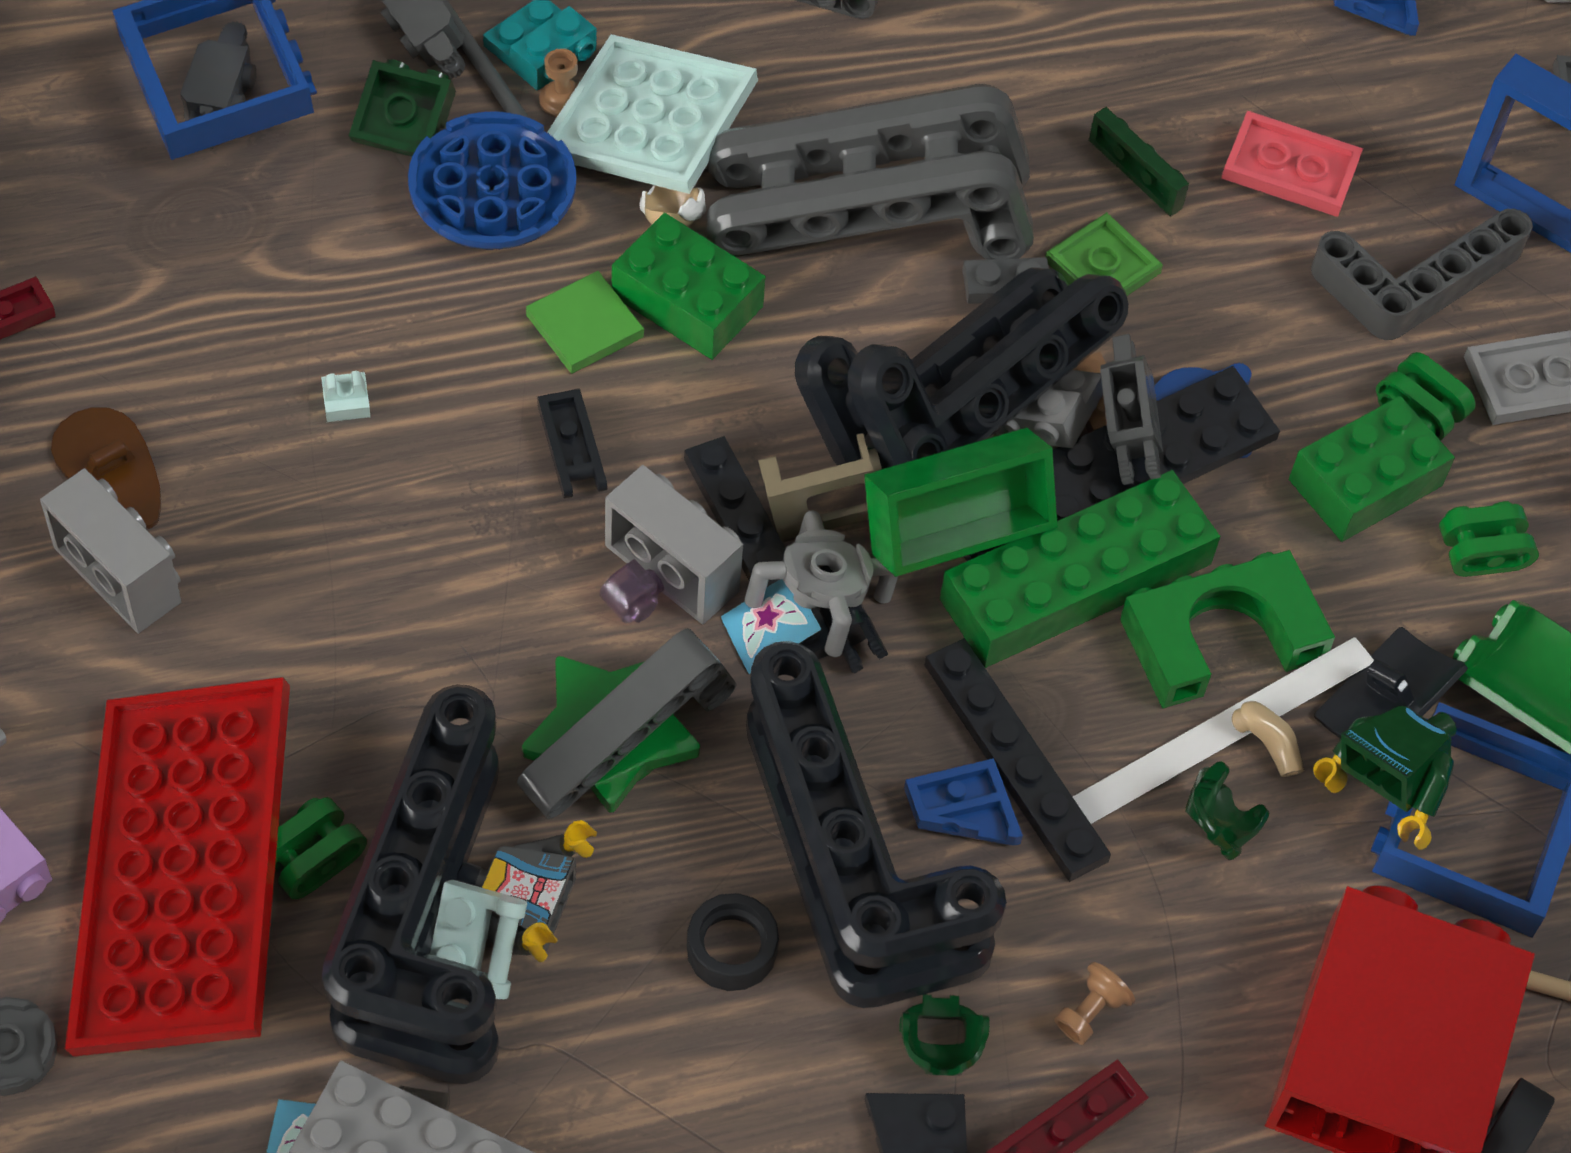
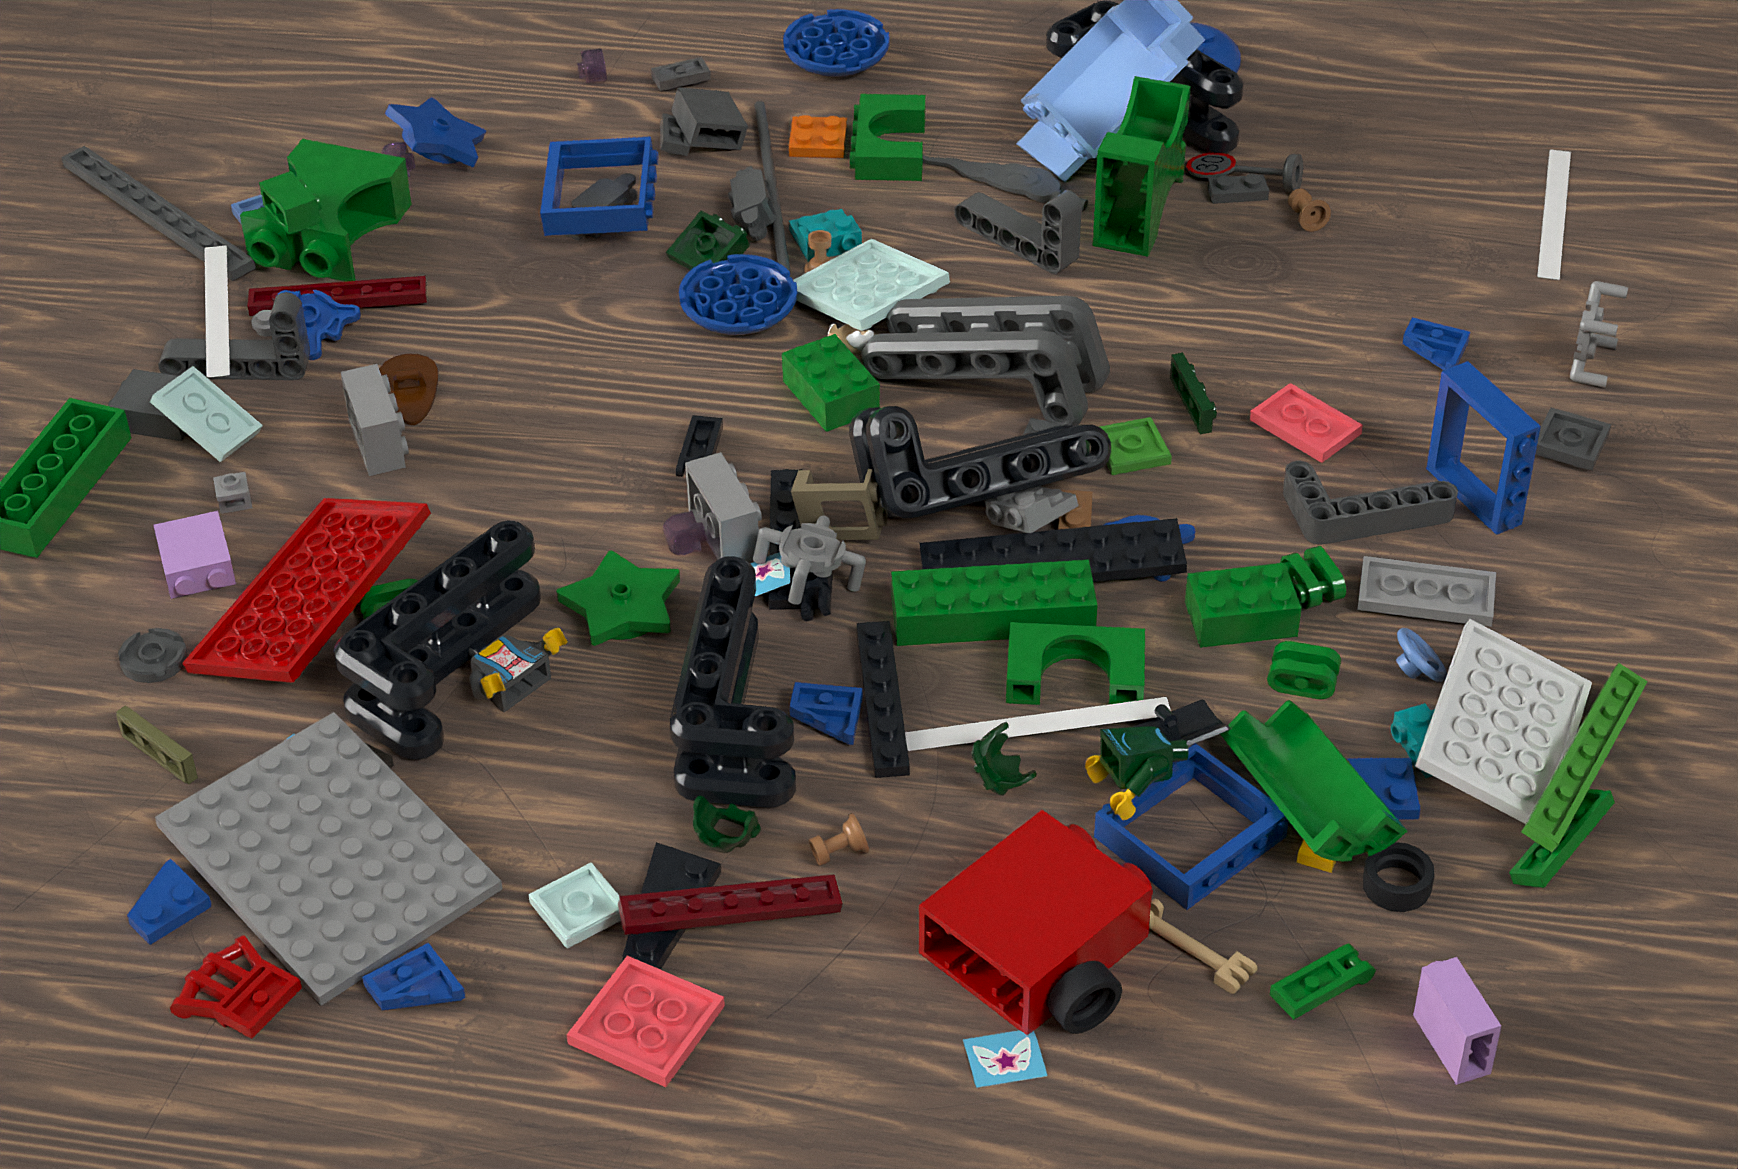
camera: 30 degrees right, 15 degrees down
(345, 396) = (574, 387): light aqua tile -> none
(464, 928) = (459, 676): light aqua plate -> none
(584, 322) = (753, 388): bright green tile -> none
(624, 720) = (624, 582): dark grey beam -> none
(740, 908) = (622, 717): black tyre -> none
(961, 501) = (917, 526): green piece -> none
(1131, 409) = (1075, 514): dark grey hinge -> none
(1274, 734) = (1069, 732): tan arm -> none

